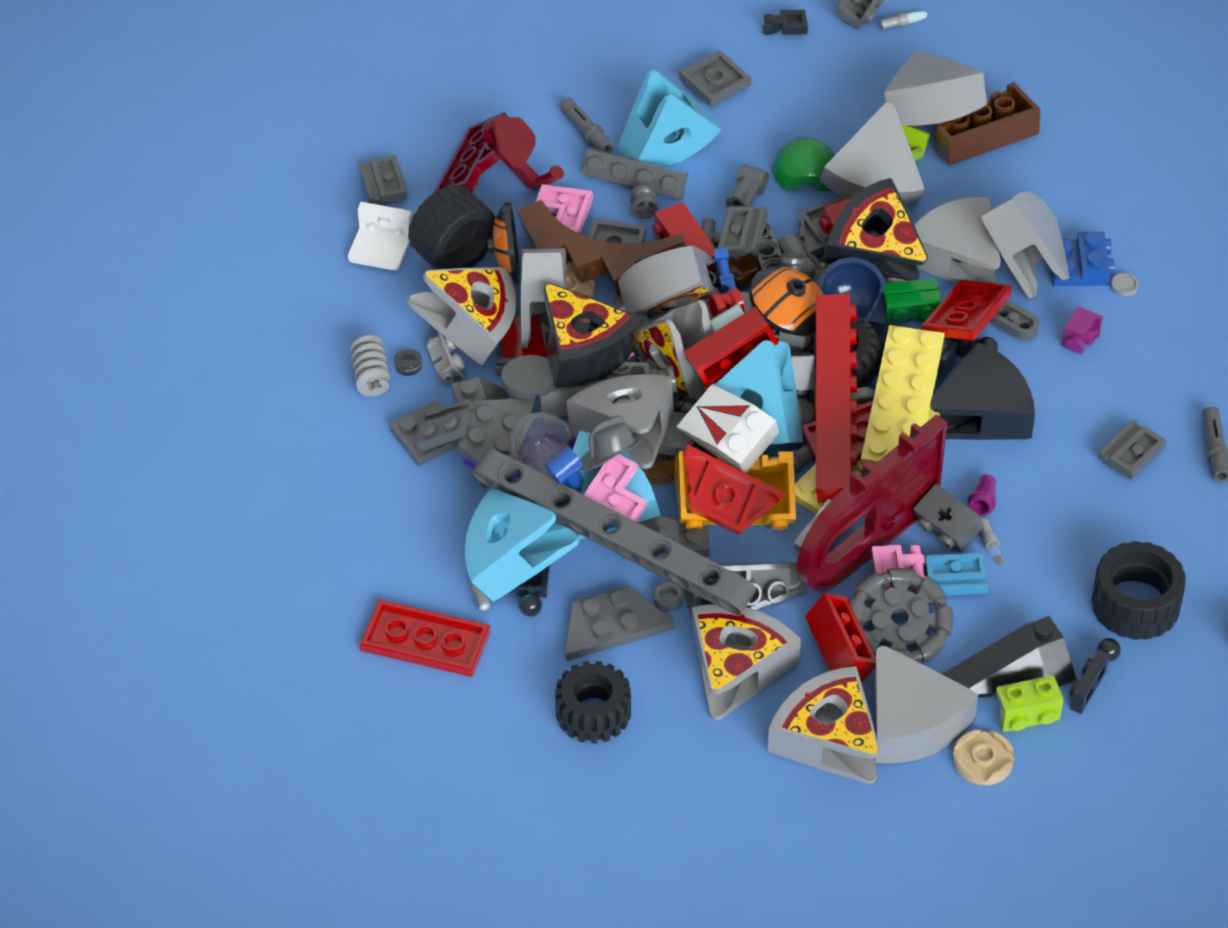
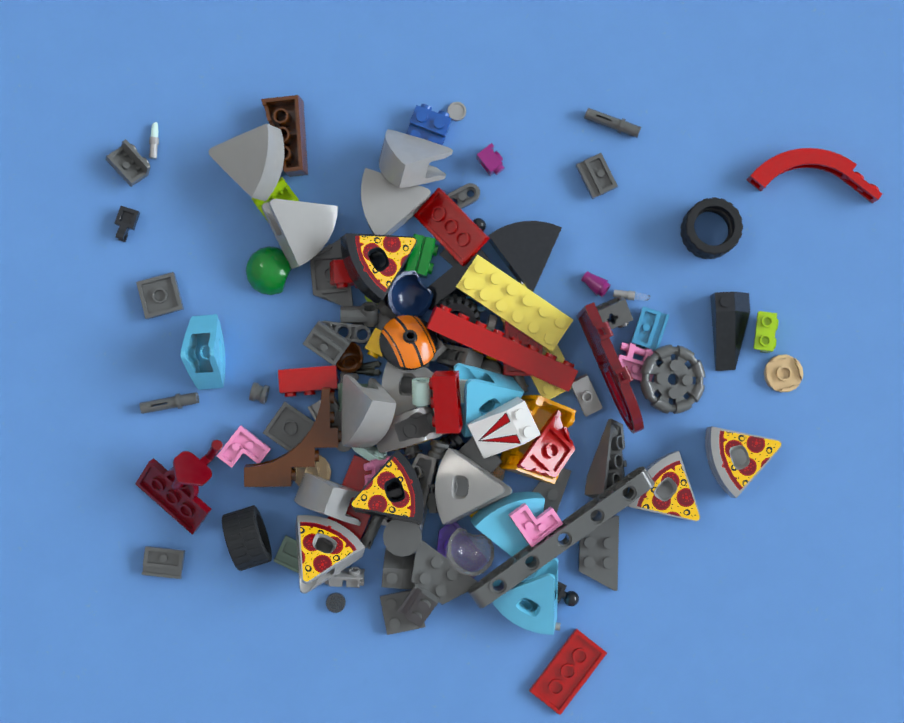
camera: 70 degrees left, 35 degrees up
(370, 365) = (334, 631): light grey piece -> none
(381, 236) = (221, 584): white bracket -> none
(505, 242) = (274, 506): black dish -> none
(566, 468) = (515, 553): blue piece -> none
(593, 721) = (680, 594): black tyre -> none
(607, 441) = (506, 517): dark grey piece -> none
(634, 172) = (230, 388): dark grey plate -> none
(708, 227) = (307, 361): dark grey arm -> none
(721, 302) = (400, 386): red wheel -> none
(726, 279) = (367, 373): blue piece -> none
(748, 184) = (271, 315): dark grey piece -> none
(792, 261) = (373, 325): dark grey wheel -> none
(840, 635) = (678, 422): red brick -> none
(916, 708) = (745, 402): light grey piece -> none
(1093, 672) = (754, 282): black plate -> none

